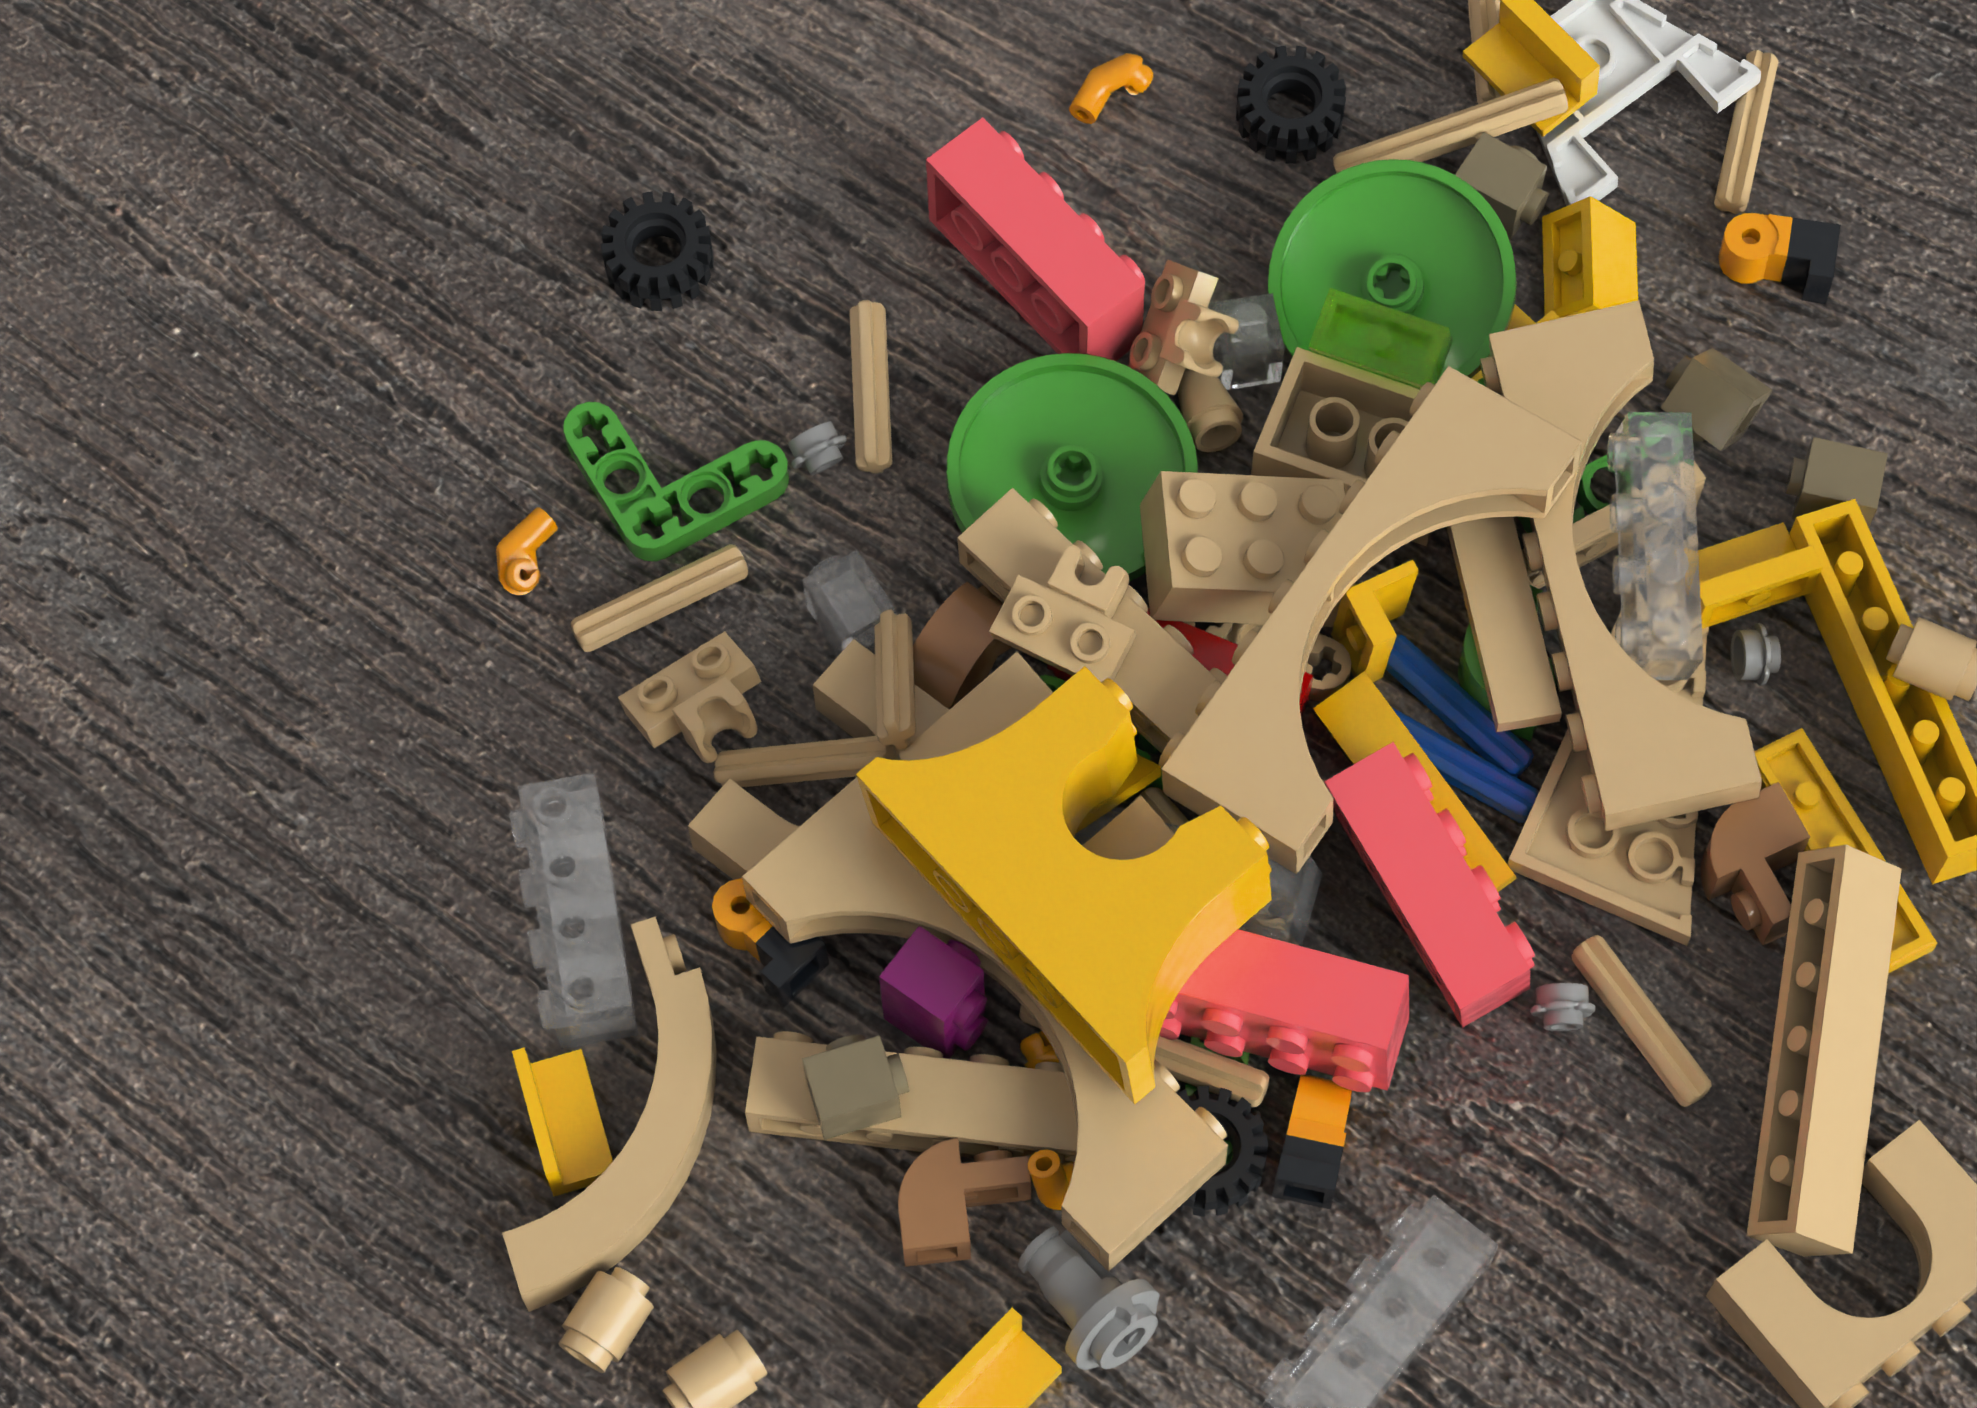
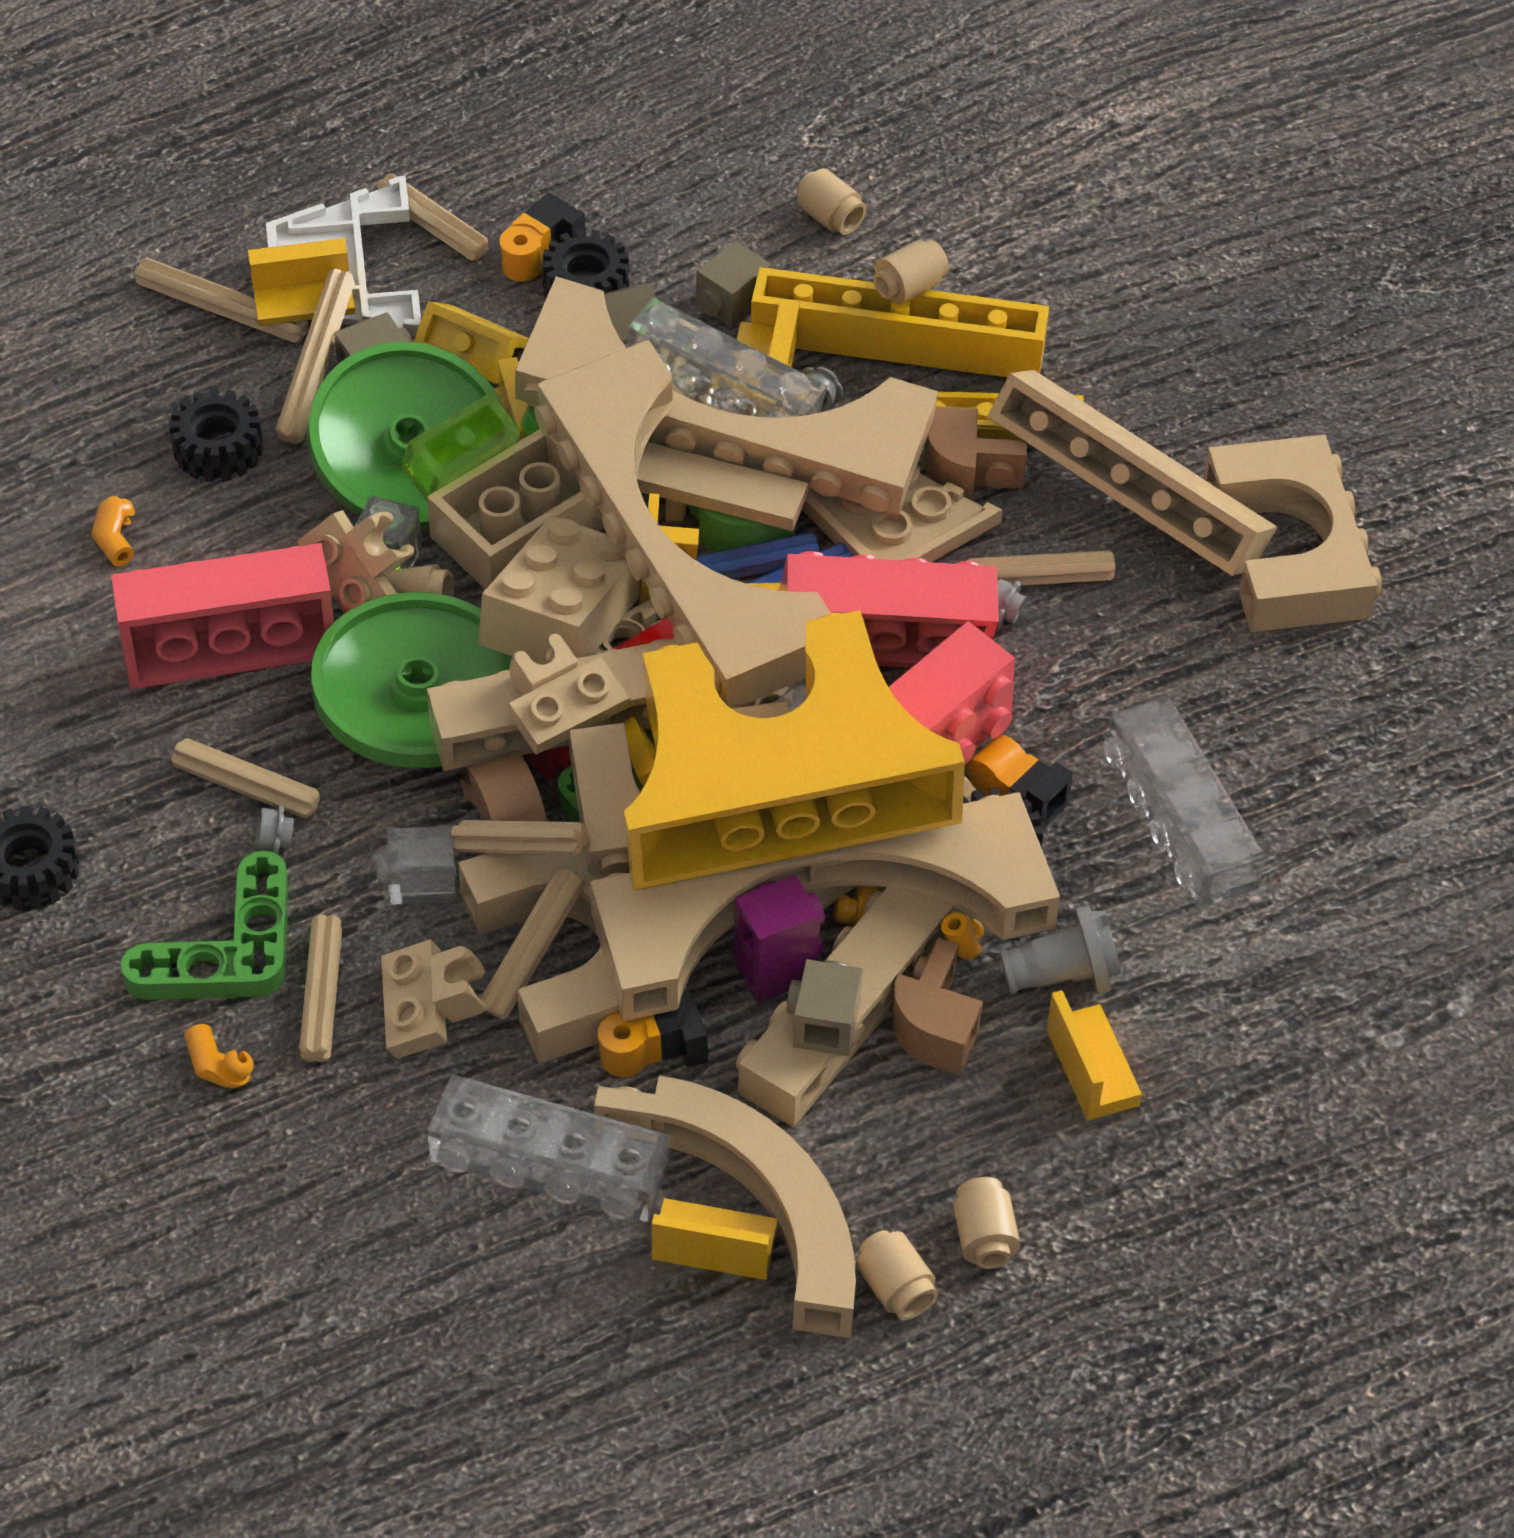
camera: 65 degrees left, 15 degrees down
(1778, 300) = (586, 254): none -> black tyre

